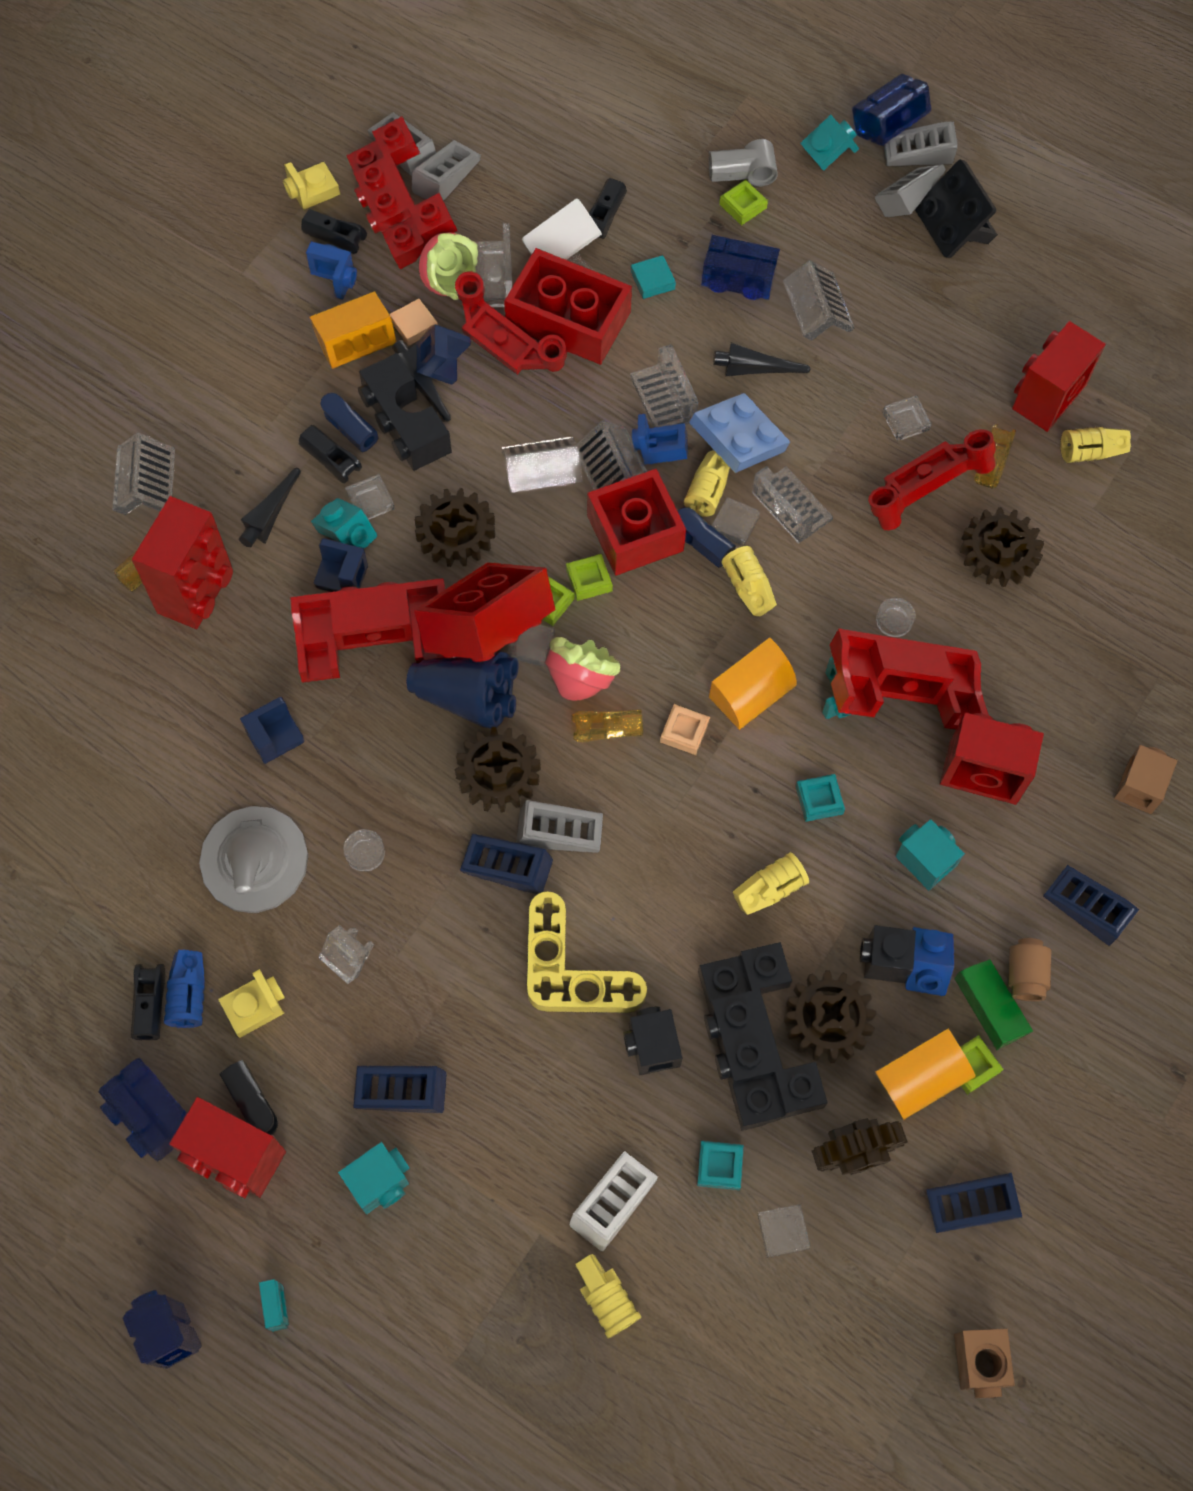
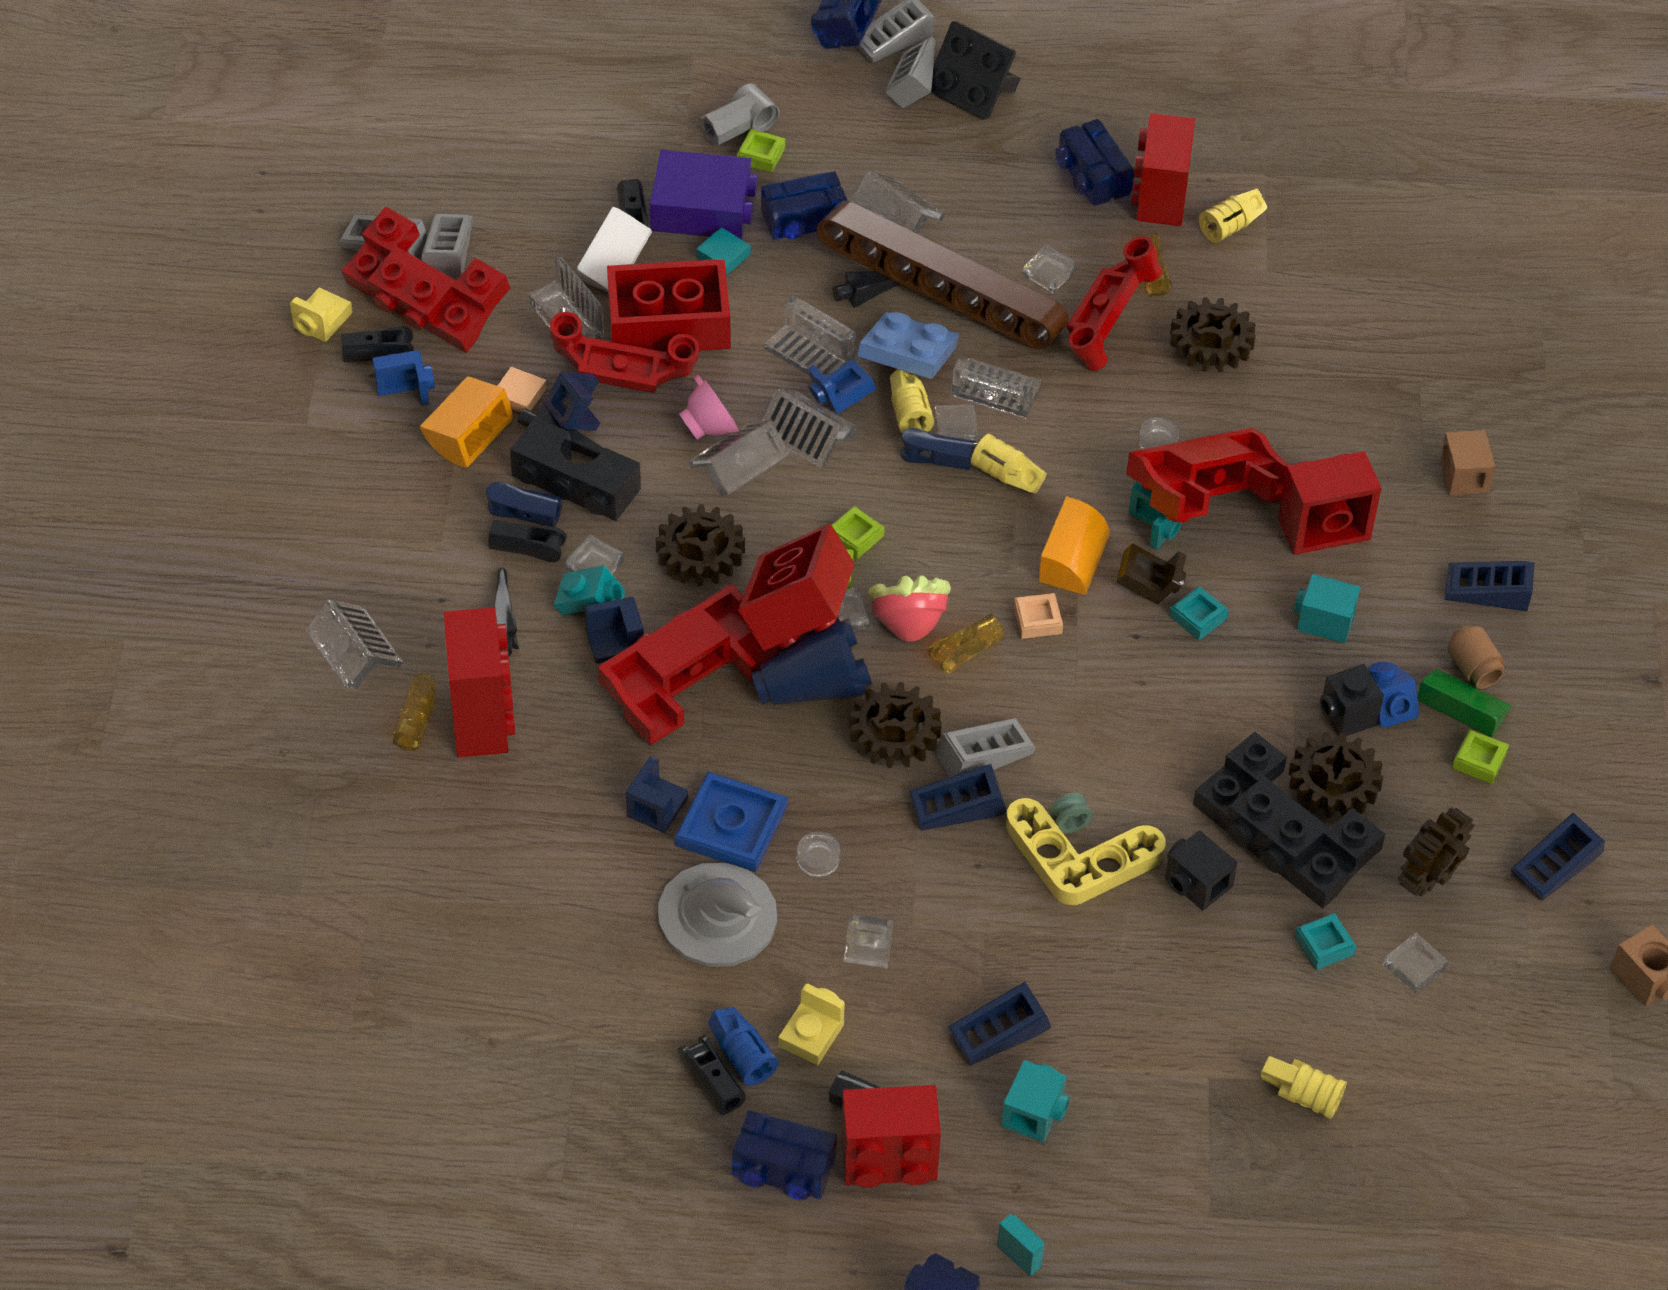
camera: 30 degrees left, 15 degrees down
(318, 783) = (731, 821): none -> blue tile
(444, 260) = (521, 322): yellowish green hair -> none
(540, 412) = (706, 413): none -> bright pink piece
(585, 927) = (1071, 812): none -> sand green bush
(589, 1227) = (1252, 1040): white slope -> none
(636, 522) = (871, 460): red brick -> none
(666, 218) = (702, 193): none -> dark purple brick
(771, 884) = (1209, 697): light yellow hinge -> none
(799, 742) = (1150, 574): none -> dark brown bracket
(808, 384) = (942, 275): none -> reddish brown beam
(829, 141) = (807, 62): teal bracket -> none
(926, 1074) = (1448, 773): light orange brick -> none
(1007, 339) = (1095, 162): none -> clear blue brick

